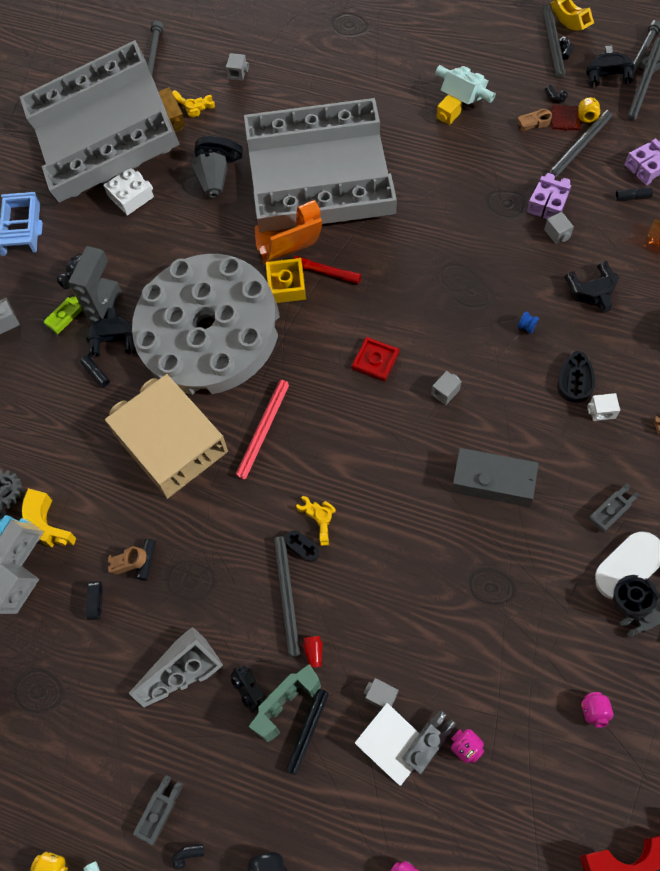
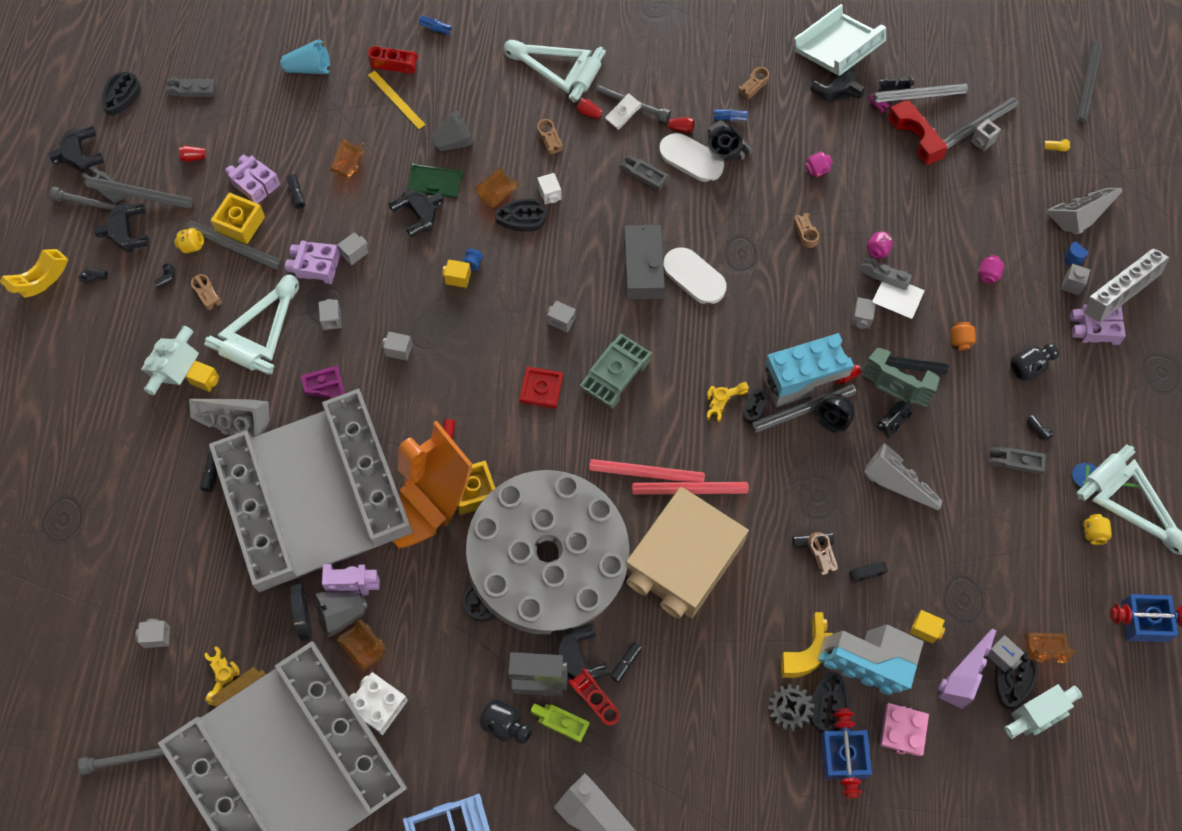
camera: 110 degrees left, 0 degrees up
(21, 639) = (928, 627): none -> yellow brick
(69, 335) = (586, 686): none -> red piece
(179, 188) = (362, 645): none -> clear orange bracket
(233, 177) = (350, 579): none -> lavender hips
(234, 462) = (693, 487): none -> coral axle
(269, 623) = (835, 412): none -> black cylinder
(319, 598) = (797, 370): none -> medium azure piece
(324, 805) = (963, 335): none -> orange head
(373, 421) = (615, 370): none -> sand green plate
(405, 129) = (232, 415): none -> light grey wedge
(420, 192) = (323, 383): none -> magenta wing
(445, 248) = (397, 345): none -> light grey brick
(470, 528) = (694, 275): none -> white tile
(471, 135) = (246, 351): none -> light aqua piece
(490, 202) = (330, 314): none -> light grey brick
(509, 666) = (805, 229): none -> medium nougat piece
(514, 307) = (456, 273): none -> yellow brick
(554, 41) = (81, 289): dark grey axle -> none
(565, 118) = (196, 263): clear red piece -> none
(605, 143) = (238, 218): none -> yellow brick
(612, 357) = (495, 188): none -> clear orange bracket
(635, 307) = (434, 178): none -> dark green door

